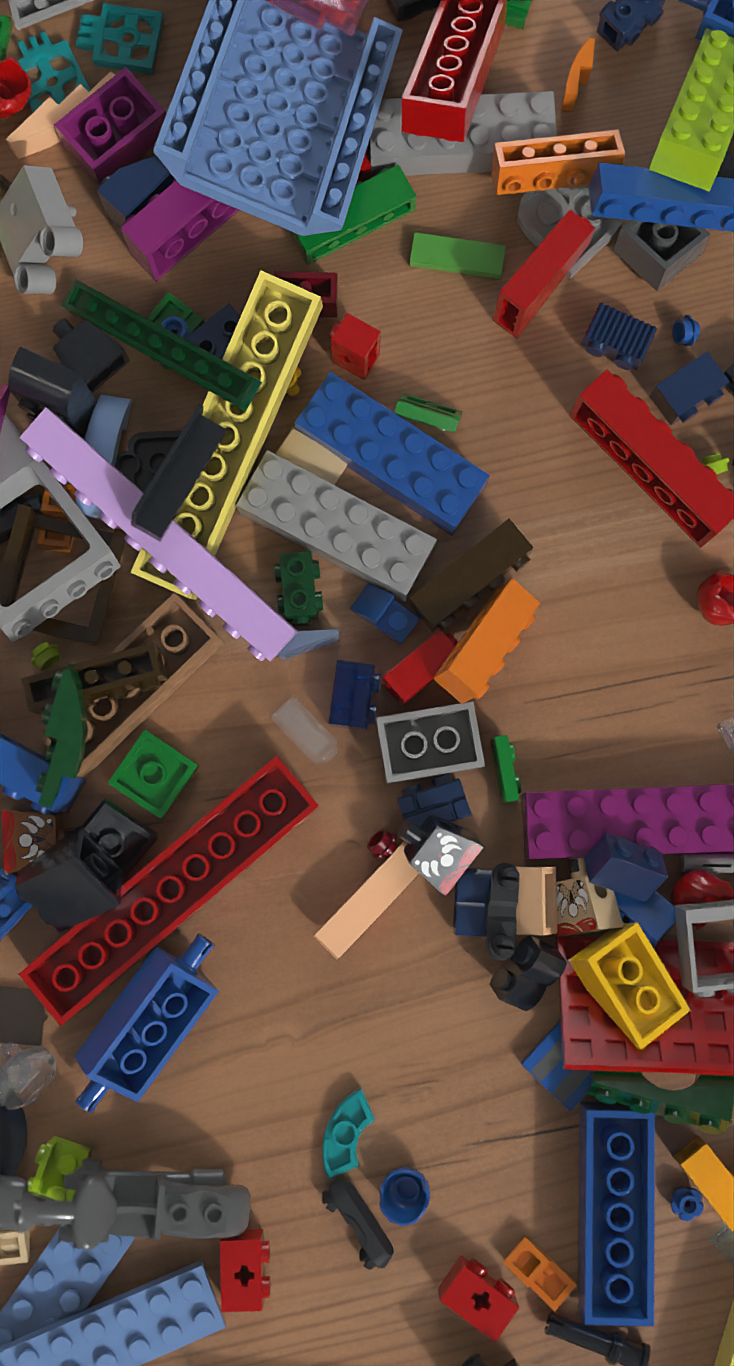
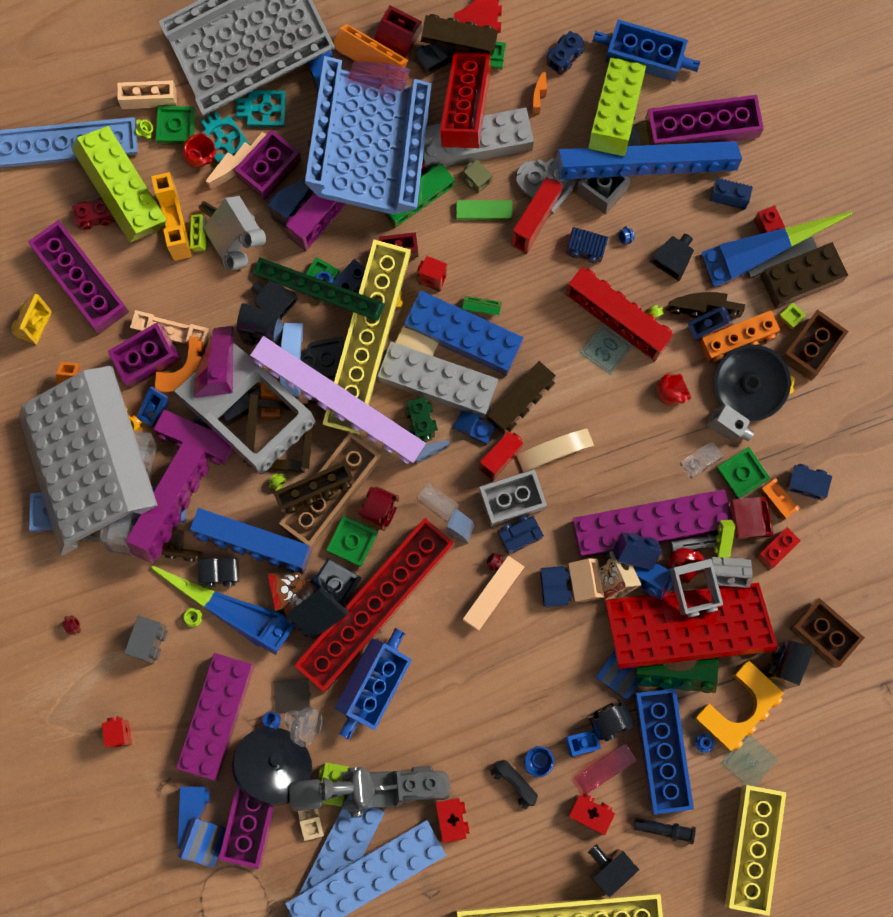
camera: 10 degrees left, 5 degrees down
(68, 724) = (305, 513): dark green slope -> none
(177, 475) = (345, 364): black panel -> none
(203, 726) = (379, 508): none -> dark red brick
(333, 779) = (460, 526): none -> sand blue slope
(343, 1133) = (497, 734): teal tile -> none
(352, 695) = (462, 478): clear blue brick -> none
(439, 850) = (528, 558): torso -> none
(454, 197) = (477, 176): none -> olive brick
(481, 1175) = (582, 743): none -> blue slope
(487, 642) = (537, 433): orange brick -> none
(502, 911) = (569, 587): black piece -> none
(507, 780) = (561, 512): green plate -> none
(514, 1223) = (605, 769): none -> clear pink slope
(528, 973) = (590, 622): black brick -> none
(534, 666) = (554, 449): none -> tan slope
(536, 1146) = (611, 720): none -> black brick
(540, 1273) = (625, 796): orange slope -> none
(553, 161) = (533, 149): orange brick -> none
(623, 515) = (606, 349): none -> clear light blue piece
(630, 983) = (650, 615): yellow slope -> none
(689, 388) = (633, 269): dark blue brick -> none

